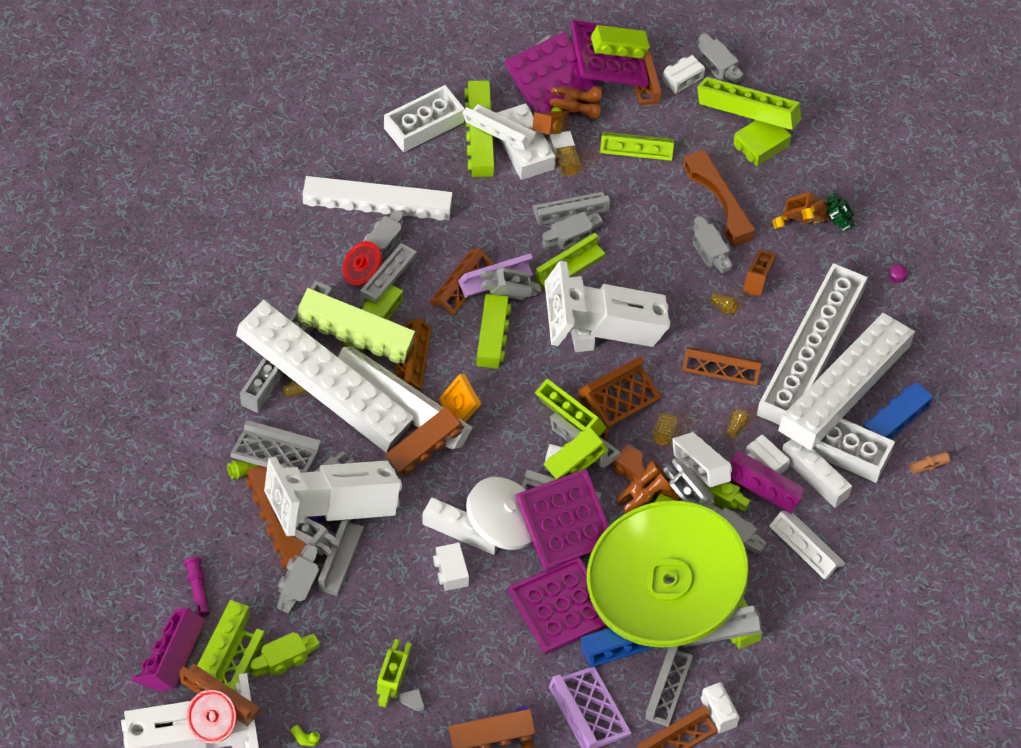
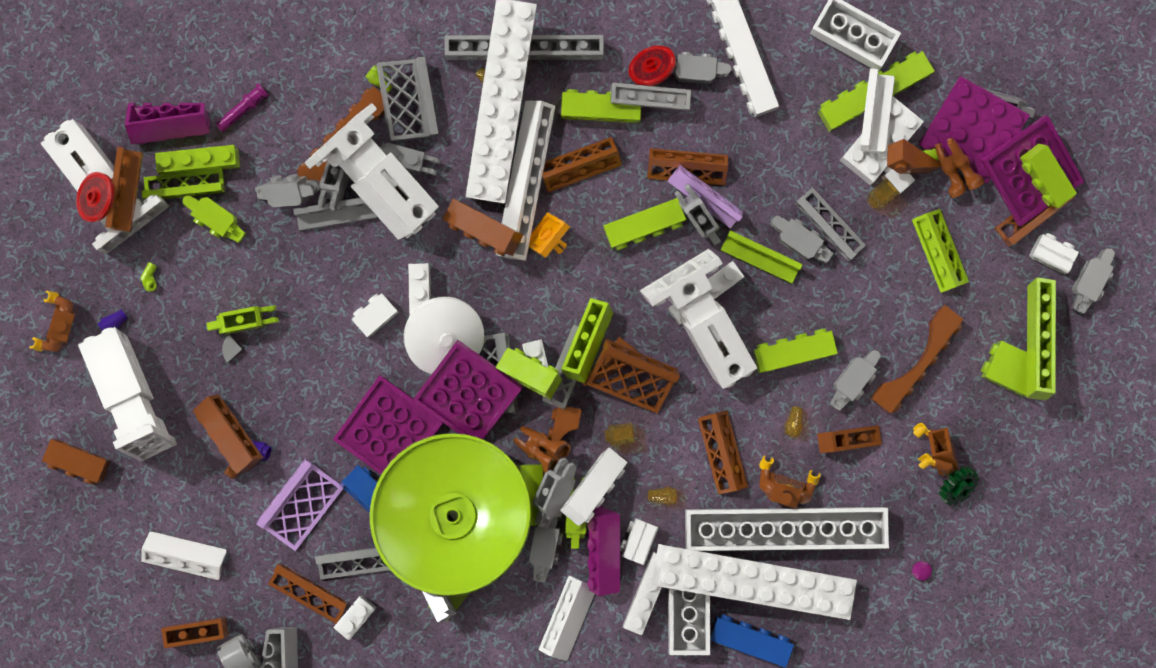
camera: 65 degrees right, 30 degrees up
(355, 326) = (563, 100): yellowish green brick -> none
(665, 269) = (793, 352): none -> lime brick
(776, 333) = (785, 489): none -> dark orange torso

